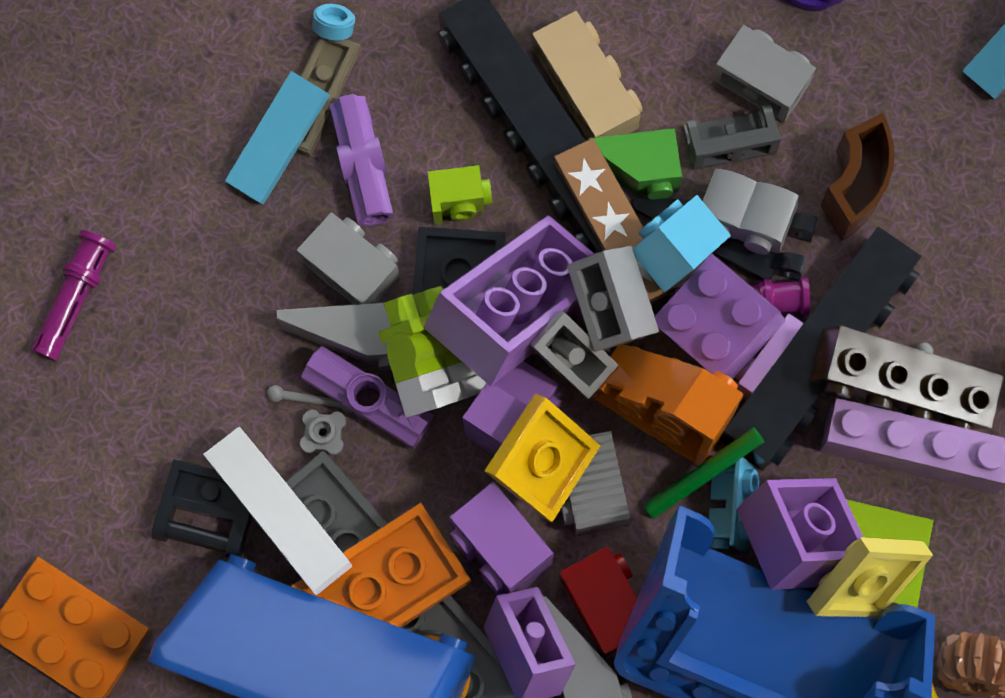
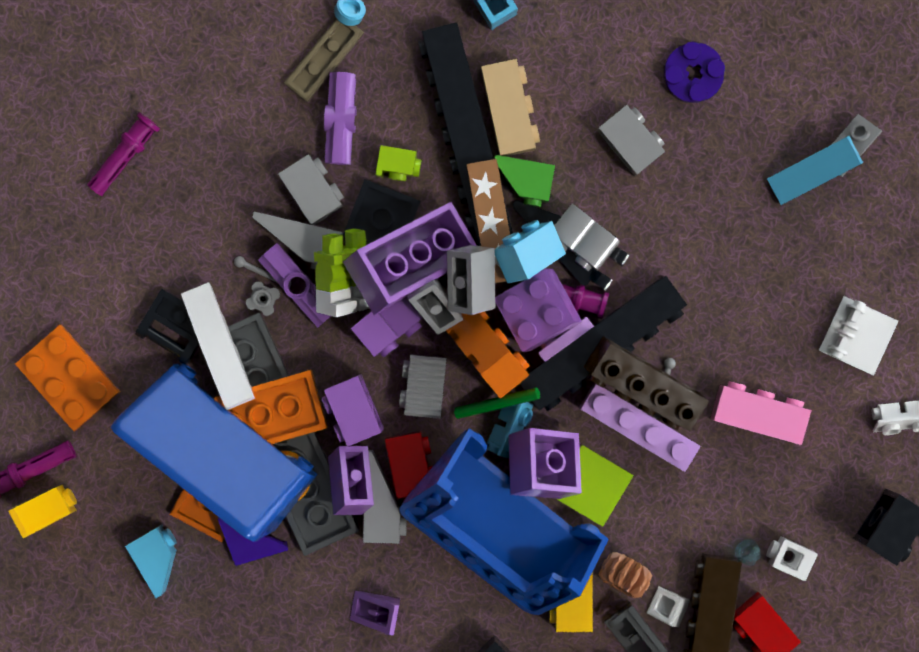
camera: 10 degrees right, 15 degrees up
(277, 137) = (288, 86): medium azure tile -> none
(543, 457) = (394, 369): yellow plate -> none
(732, 138) = (594, 178): dark grey hinge -> none
(866, 170) = (671, 236): reddish brown brick -> none
(869, 577) = (574, 505): light yellow plate -> none

